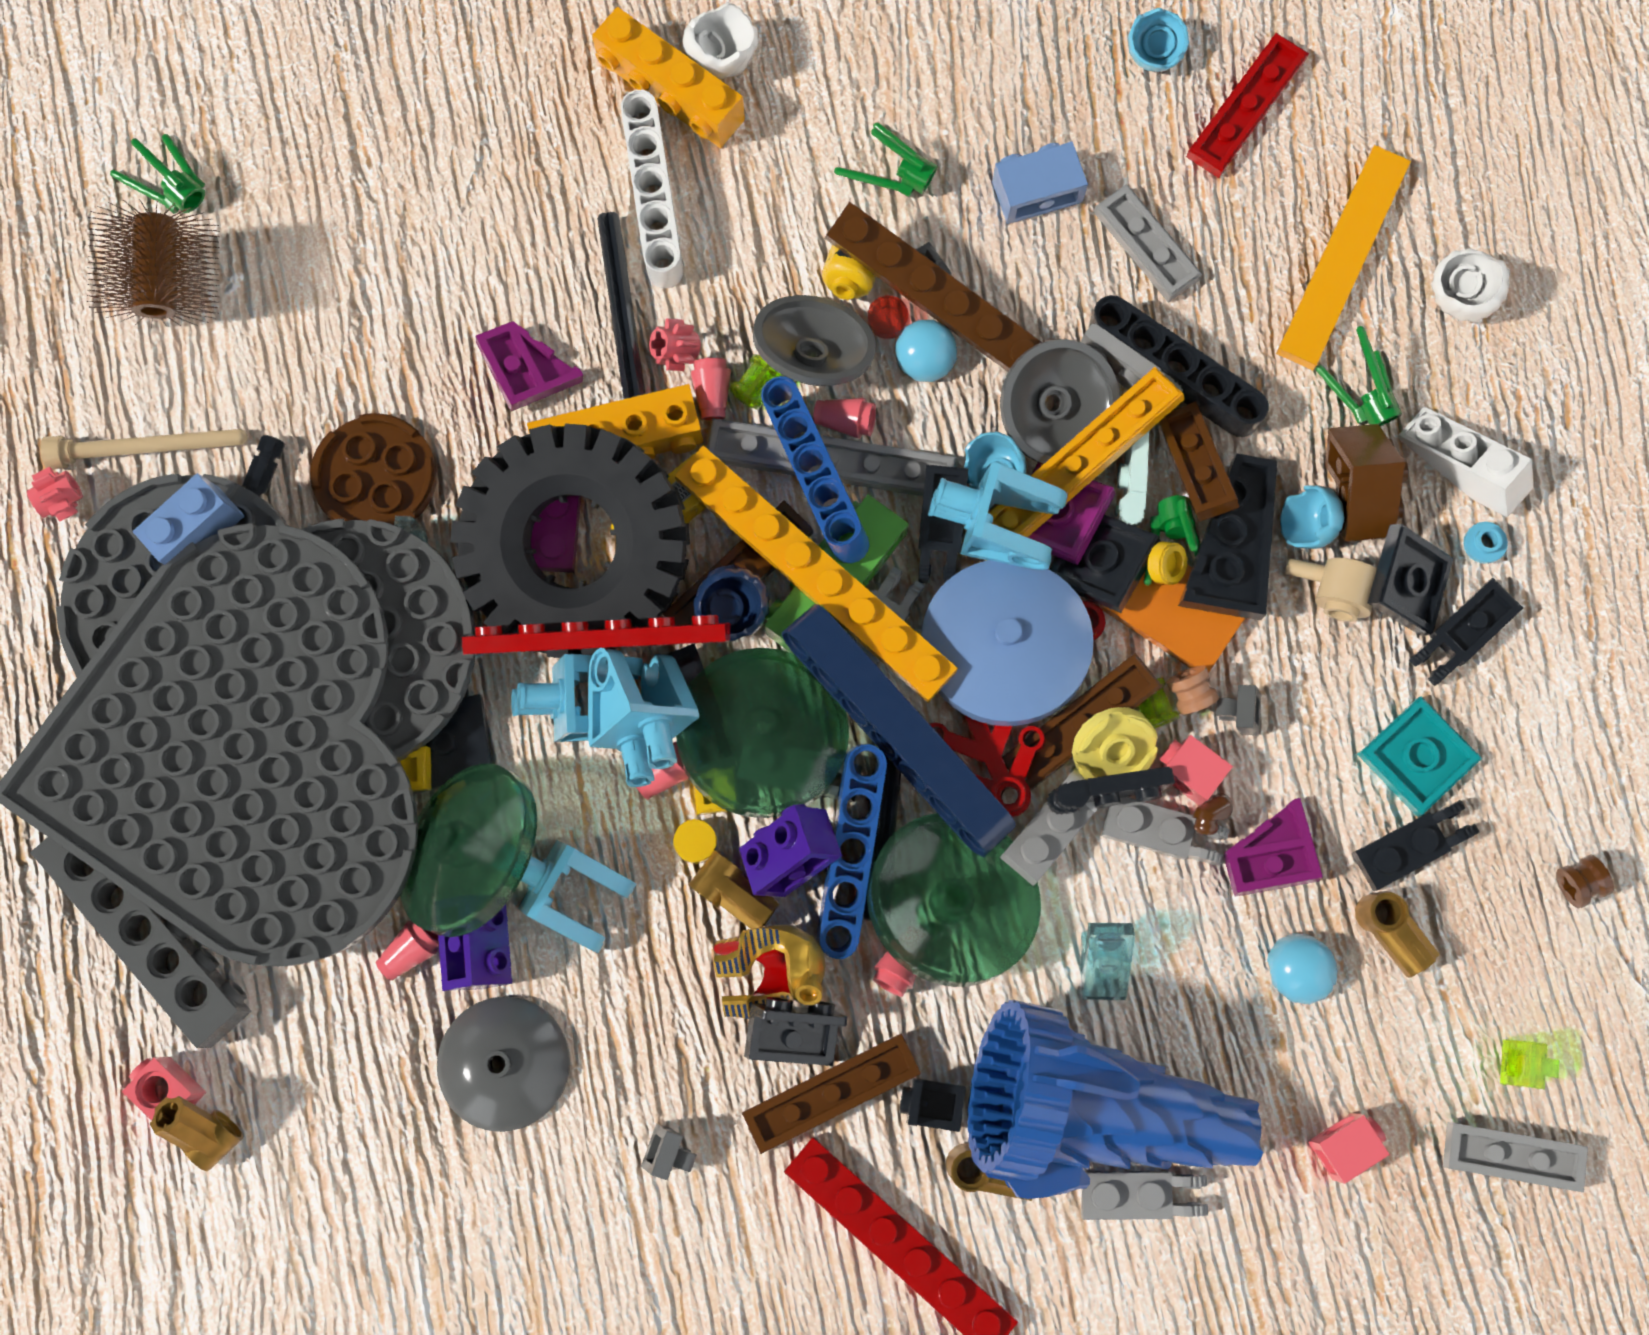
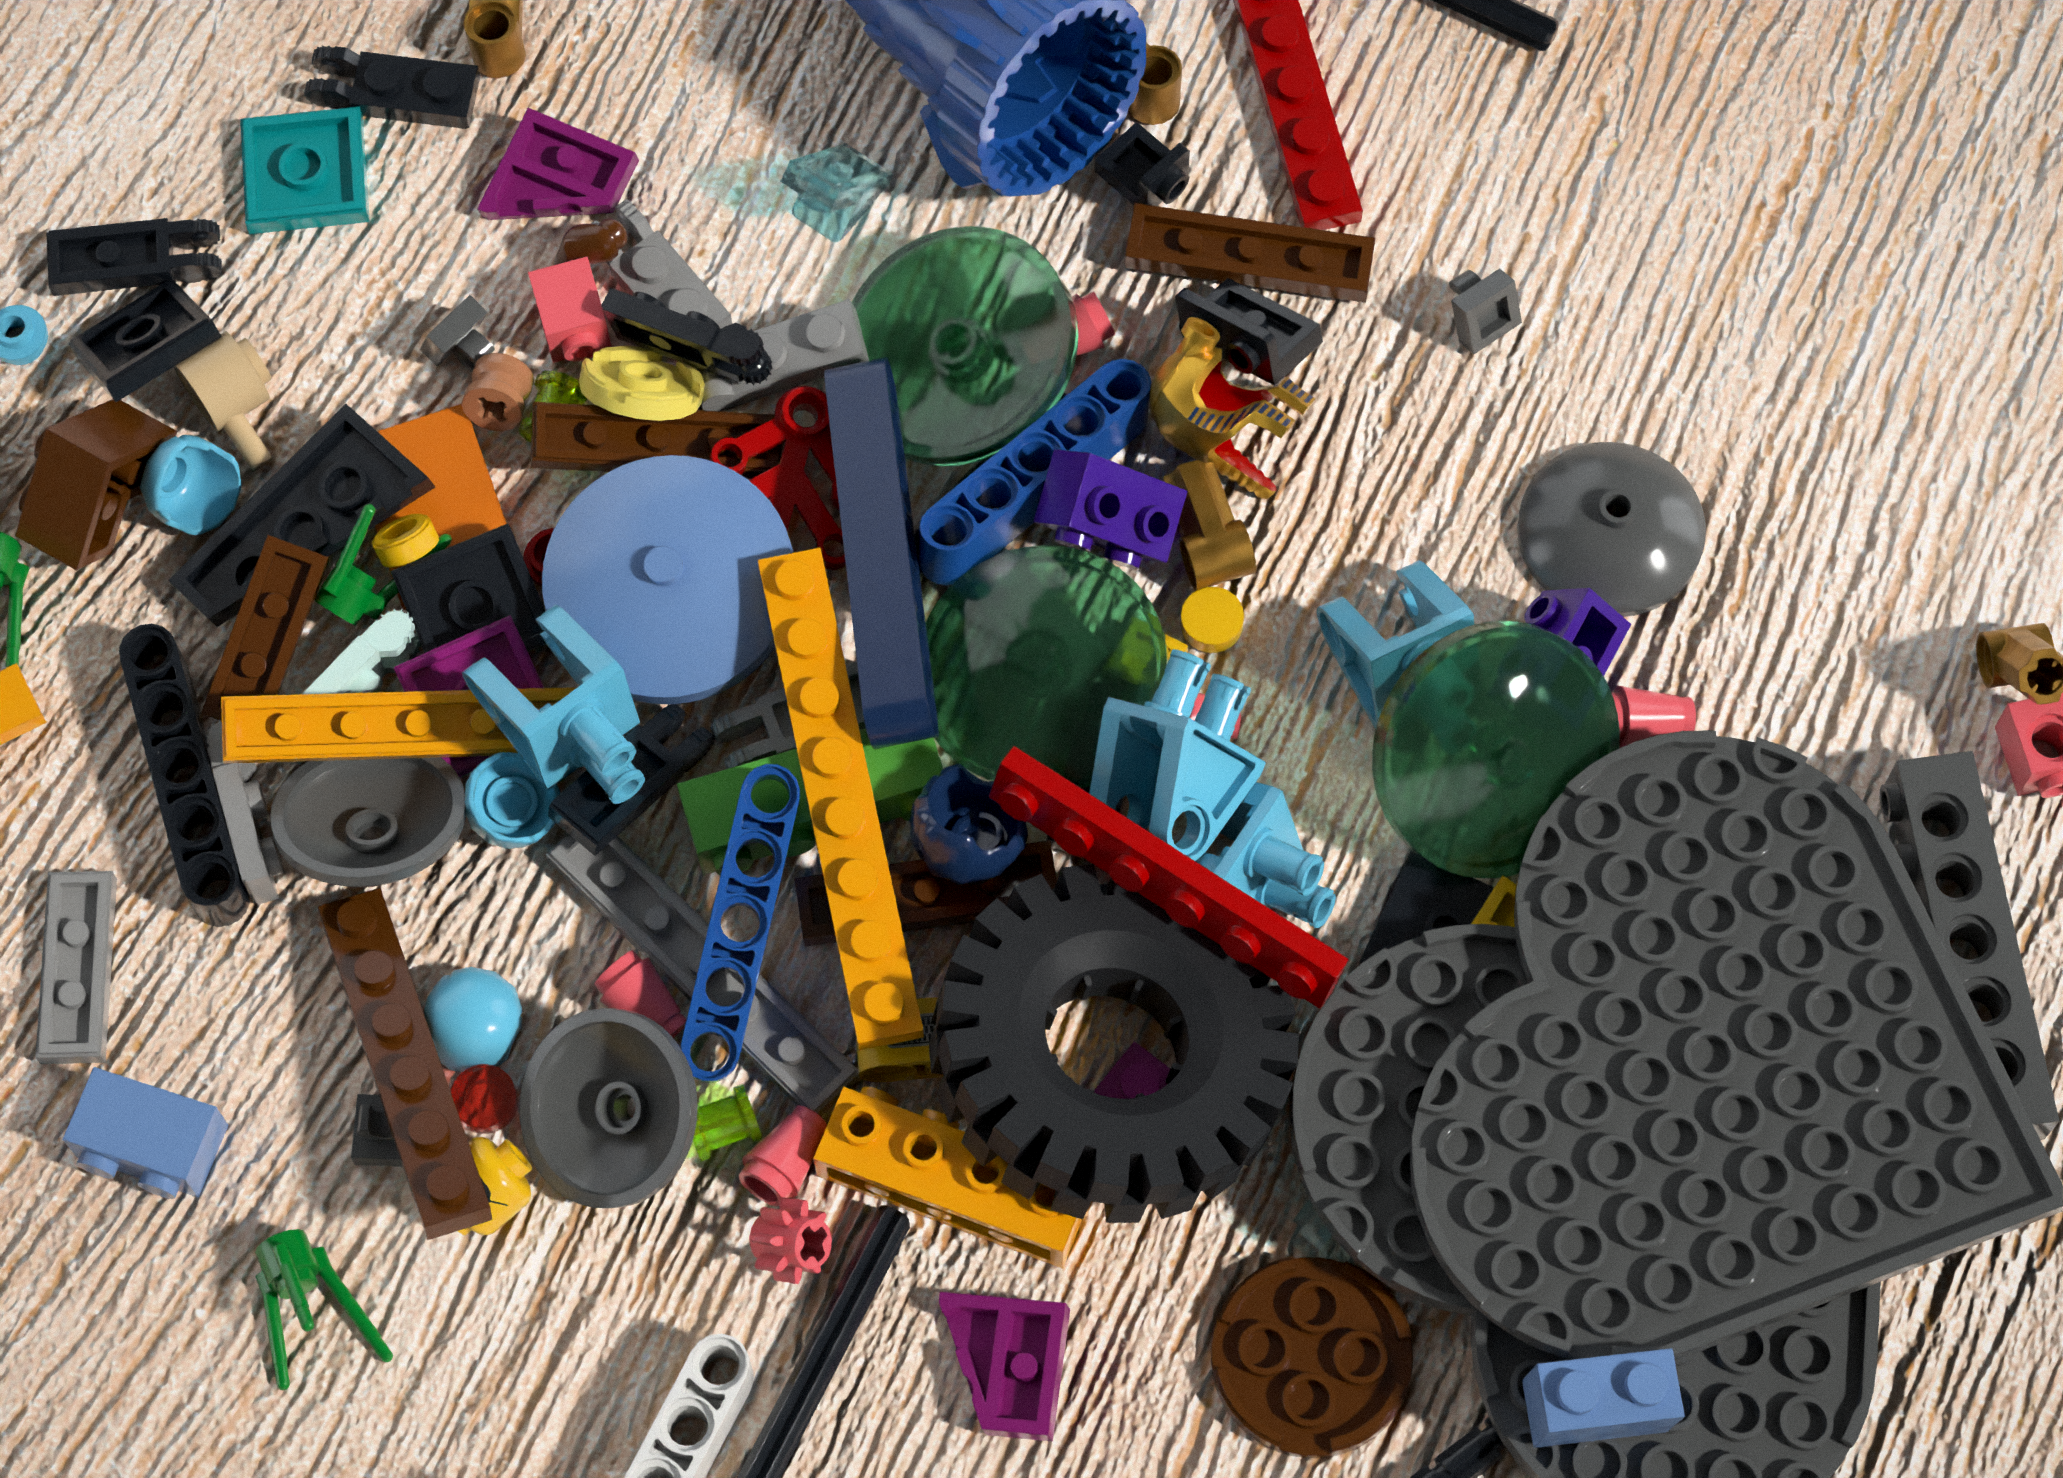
camera: 145 degrees left, 10 degrees down
(1302, 968) = (626, 48): medium azure hair -> none

